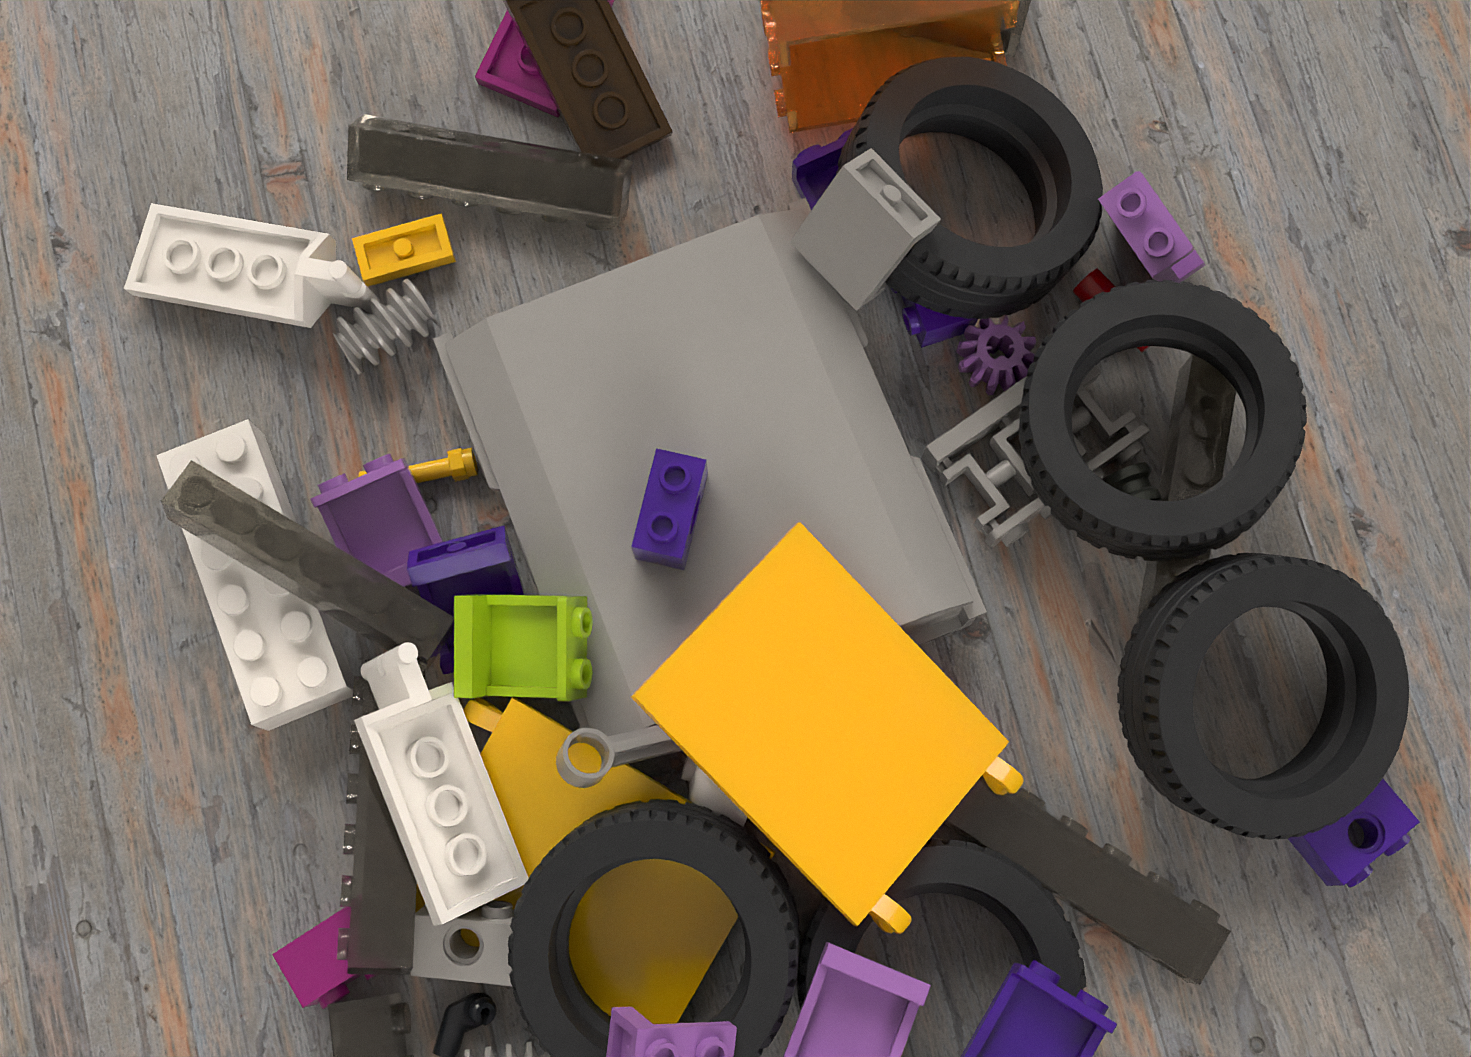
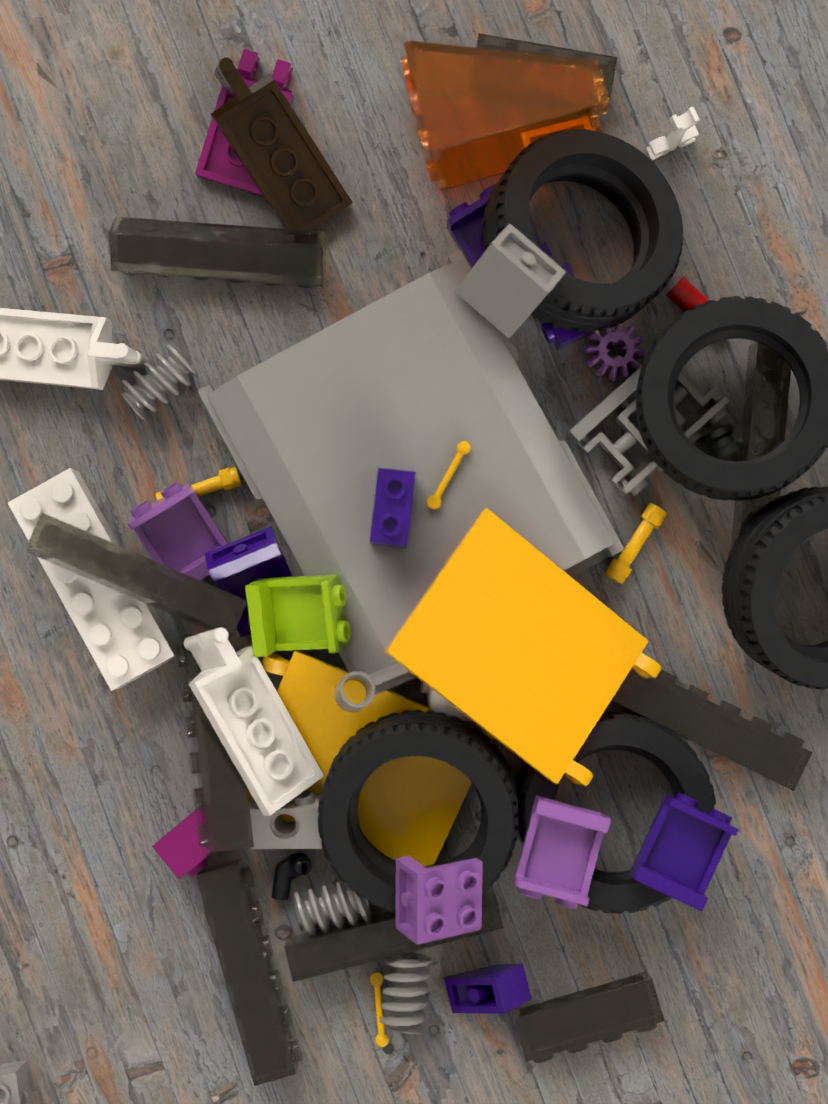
camera: 15 degrees left, 10 degrees up
(403, 250) = (162, 319): yellow plate -> none
(730, 510) = (434, 501): none -> yellow hinge
(978, 642) = (651, 518): none -> yellow bar
(1107, 90) = (681, 134): none -> white bar
(1151, 230) = (721, 249): medium lavender panel -> none

